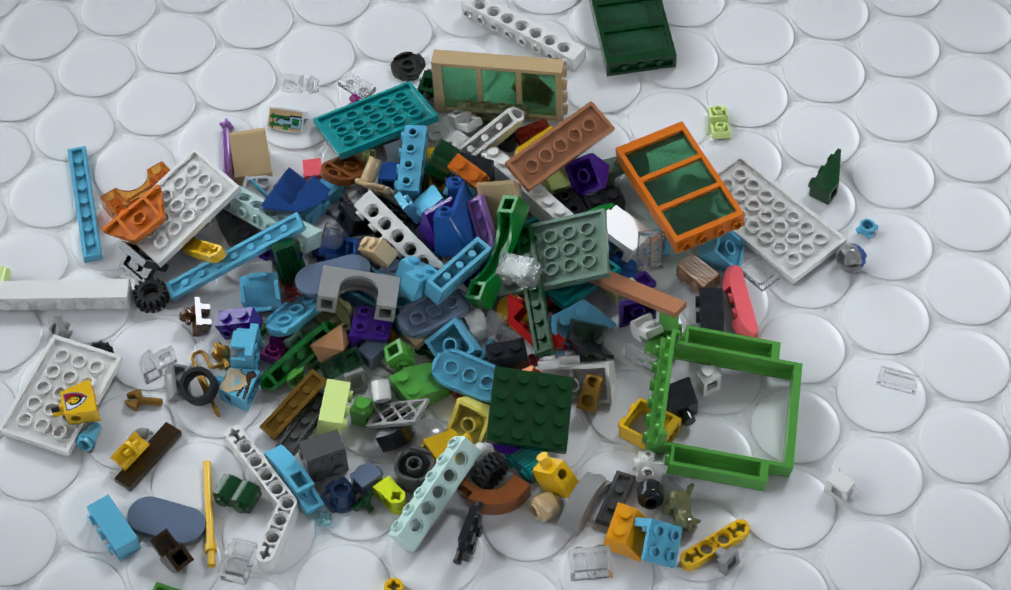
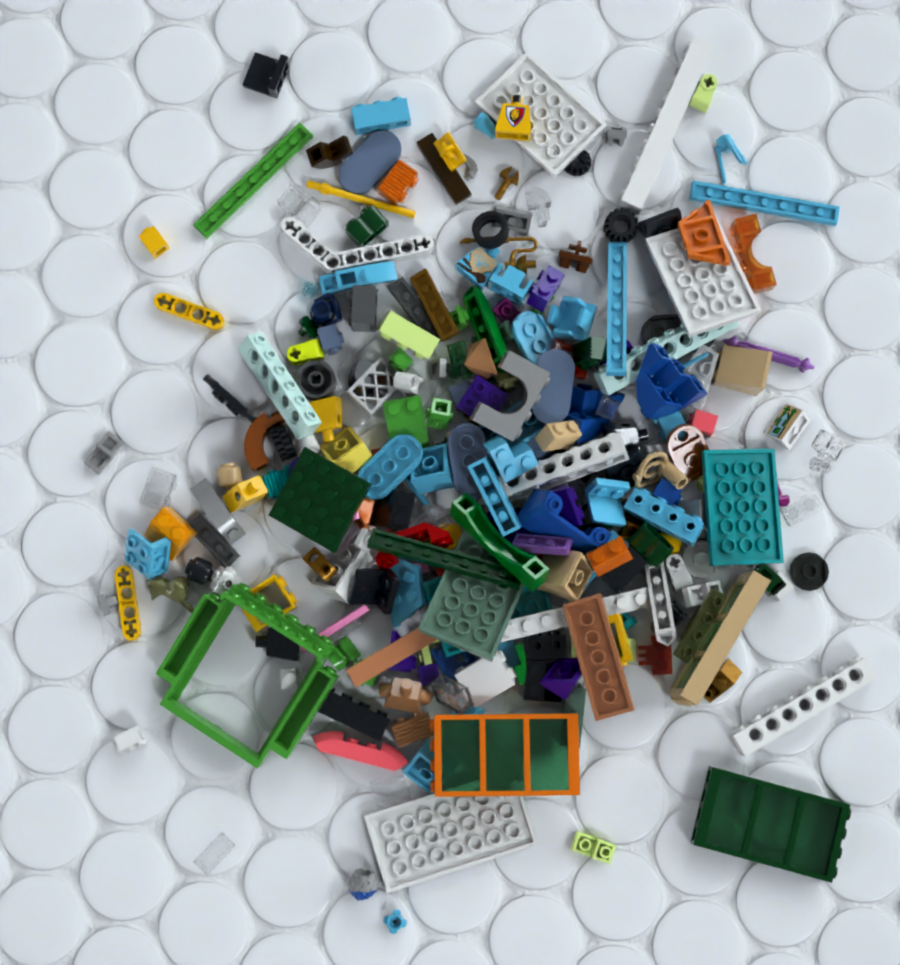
camera: 105 degrees right, 30 degrees up
(38, 245) = (727, 145): none -> medium azure plant
(179, 485) = (398, 182): none -> orange brick
(203, 250) = (642, 281): yellow beam -> none
(519, 270) = (465, 551): clear brick -> none
(635, 361) = (343, 622): none -> bright pink tile
(645, 327) = (364, 647): white brick -> none
(671, 280) = (404, 694): none -> medium nougat torso
(826, 183) = (466, 915): dark green slope -> none

